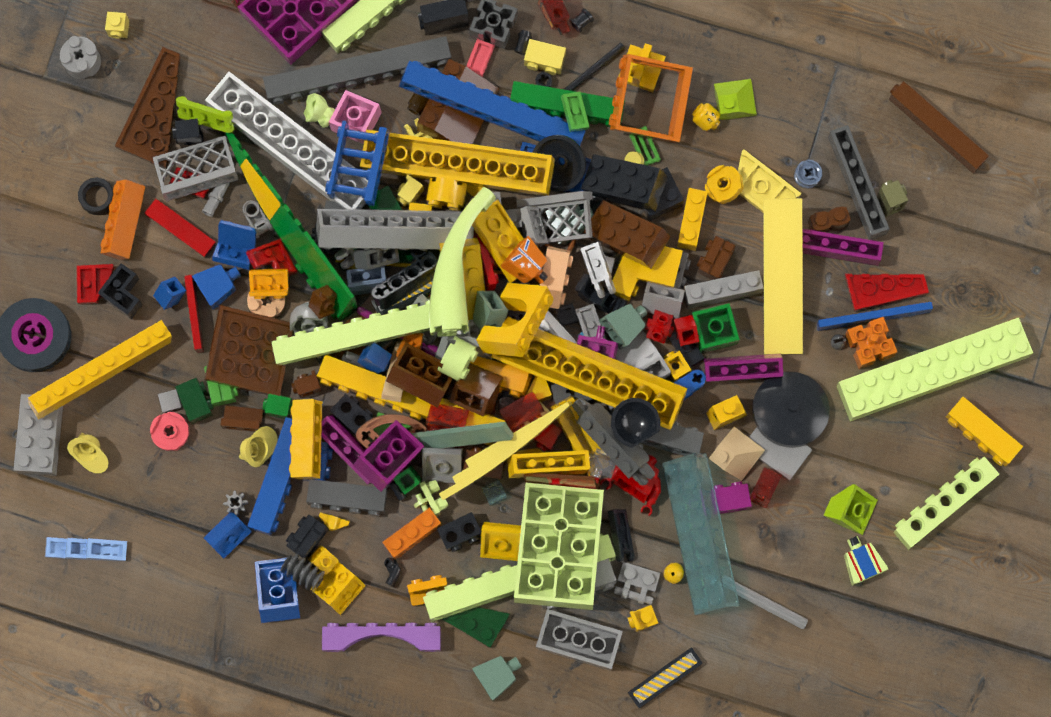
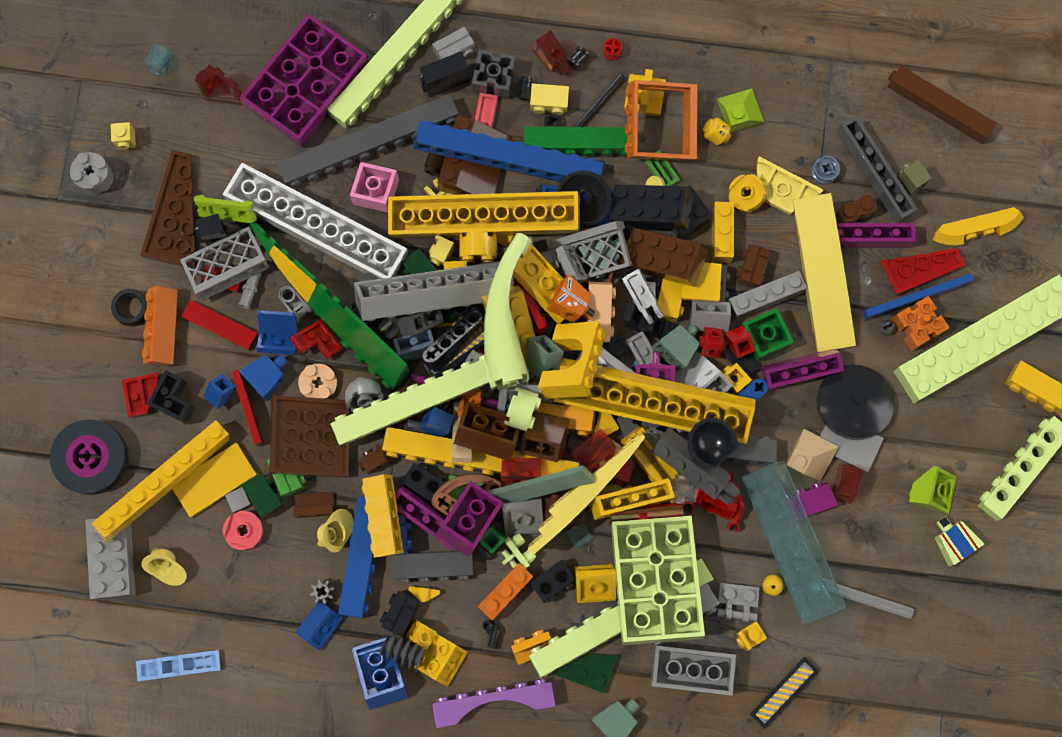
camera: 15 degrees left, 0 degrees up
(149, 378) = (214, 480): none -> yellow tile
(269, 283) = (317, 365): light orange bracket -> none
(277, 406) = (347, 486): green brick -> none
(318, 110) = (336, 186): yellowish green hair -> none
(323, 301) = (375, 374): reddish brown brick -> none
(372, 175) = (402, 239): blue fence -> none
(575, 111) = (590, 146): bright green plate -> none
(615, 13) = (614, 45): none -> red wheel
(621, 534) = (713, 556): black hinge -> none
(726, 412) = (793, 416): yellow torso -> none
(958, 255) = (986, 224): none -> yellow brick

